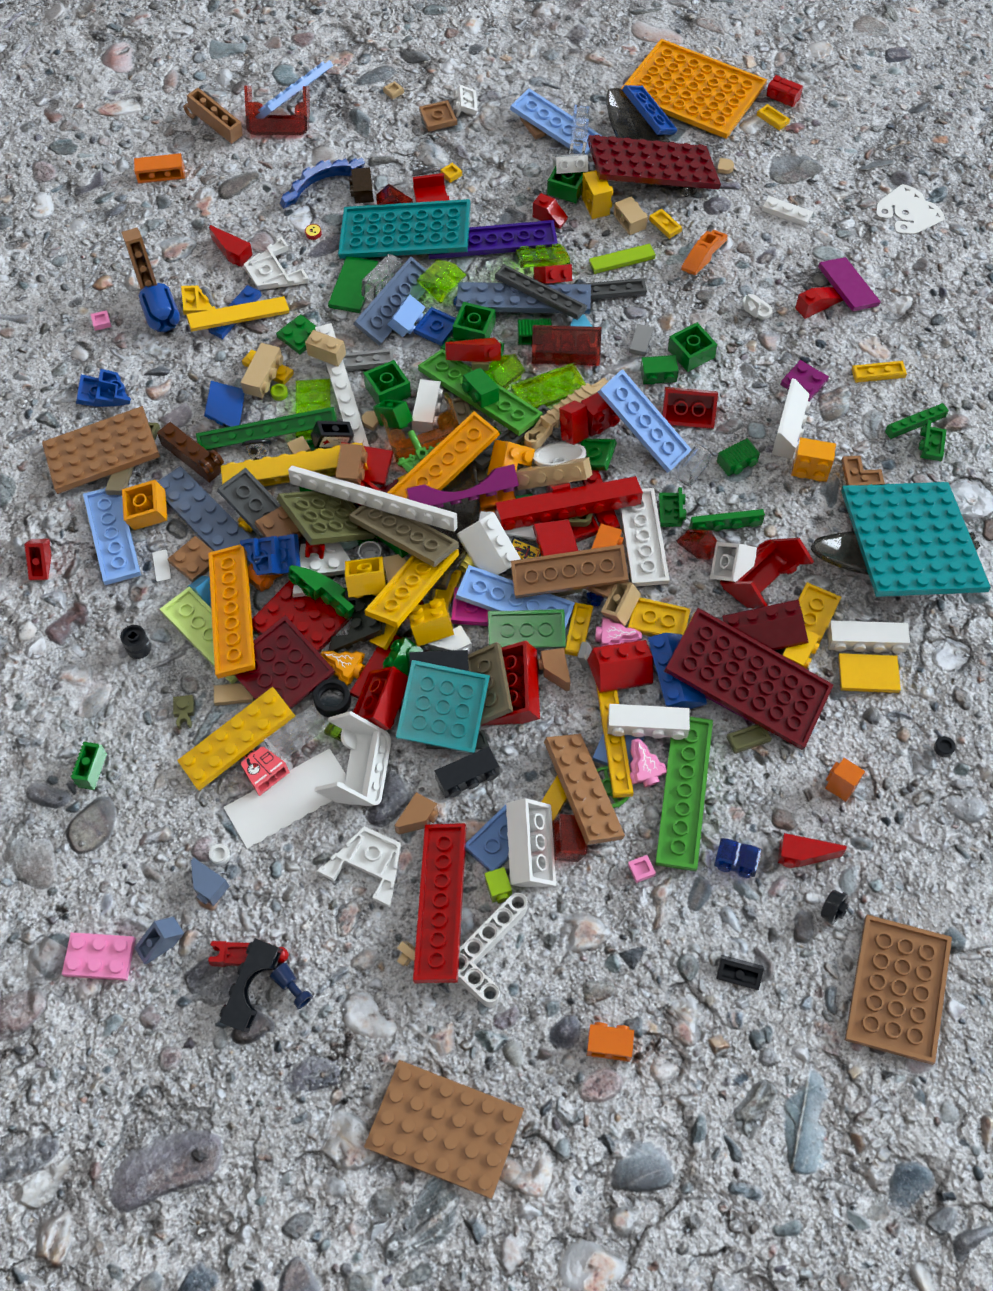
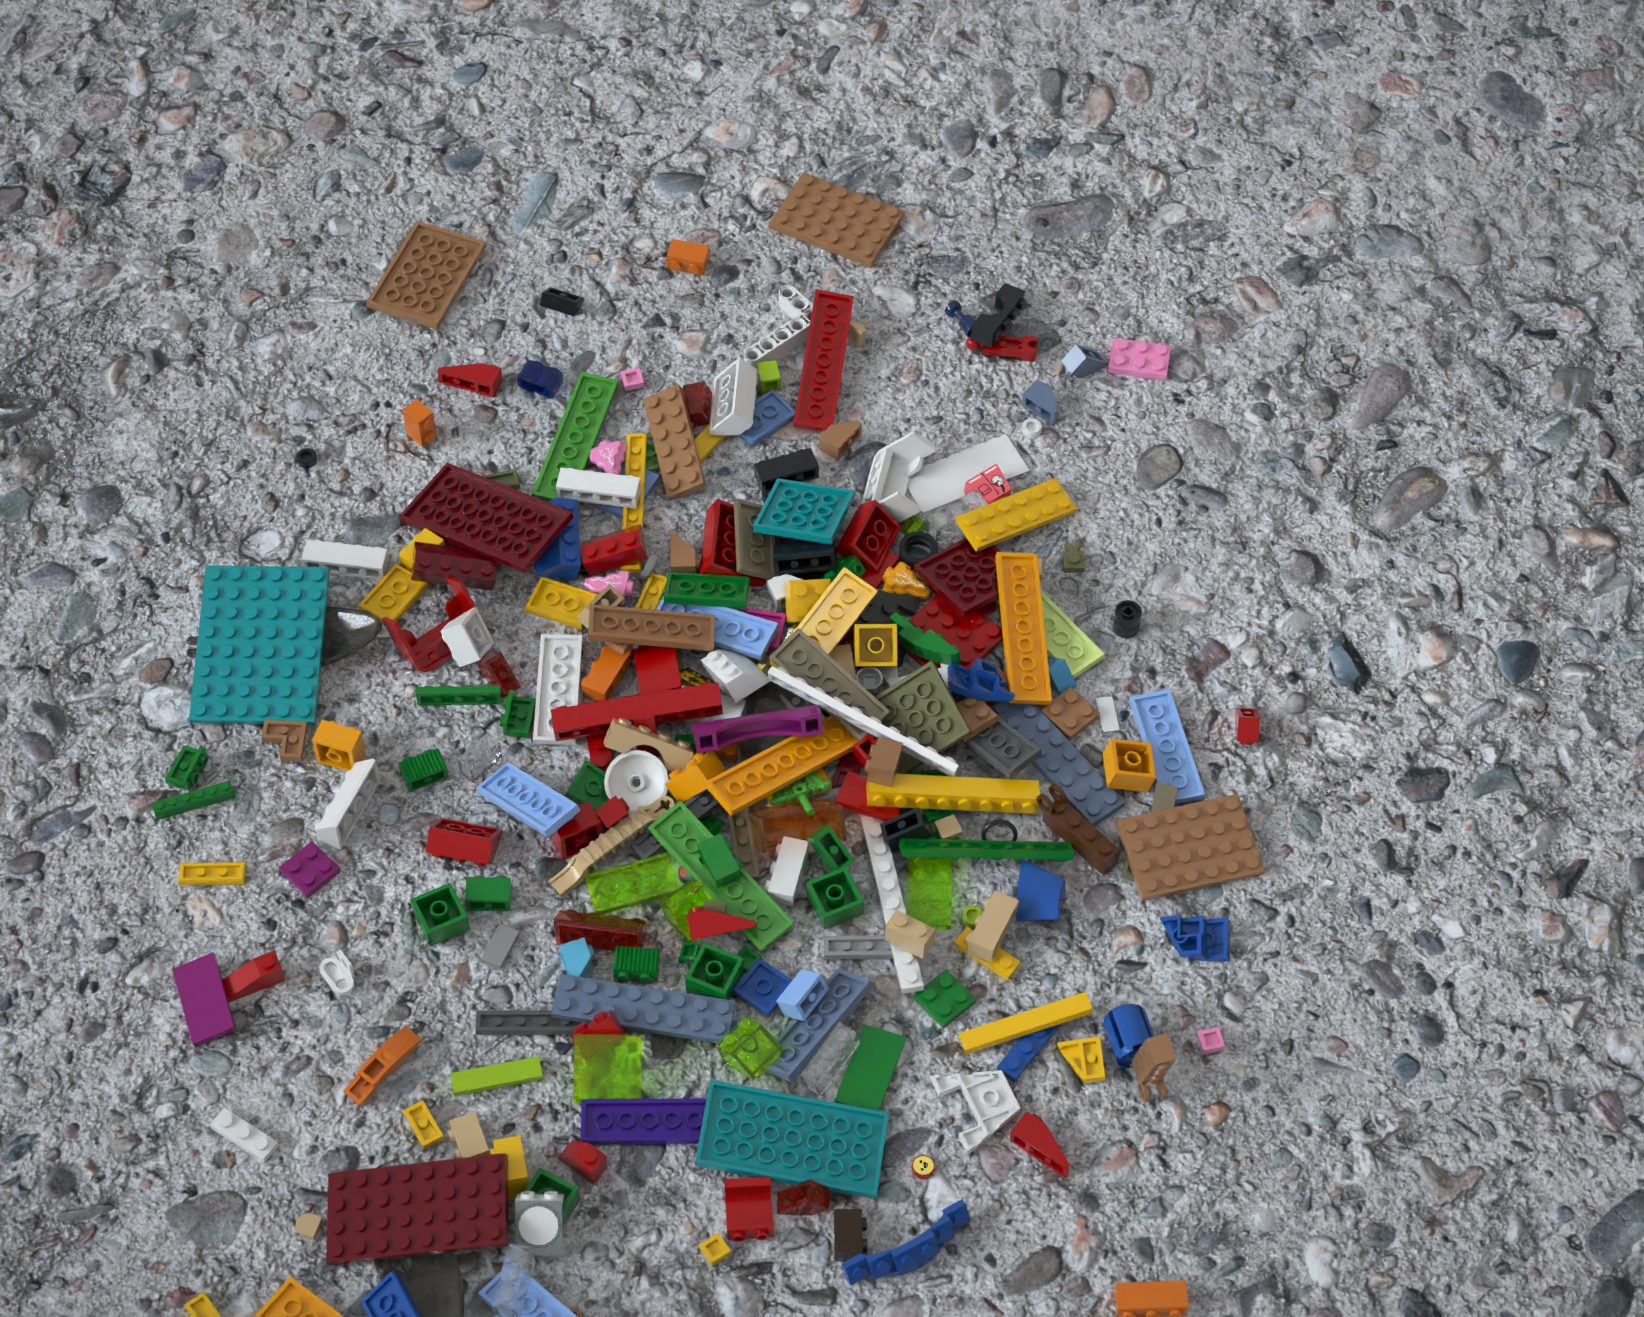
camera: 175 degrees left, 5 degrees down
(88, 765) = (1163, 503): green brick -> none
(370, 420) = (860, 867): tan tile -> none
(371, 854) = (886, 412): white wing -> none
(541, 292) = (621, 999): dark grey tile -> none
(834, 906) = (463, 330): black piece -> none
(869, 673) = (356, 528): yellow tile -> none
(917, 208) = (59, 1131): white piece -> none

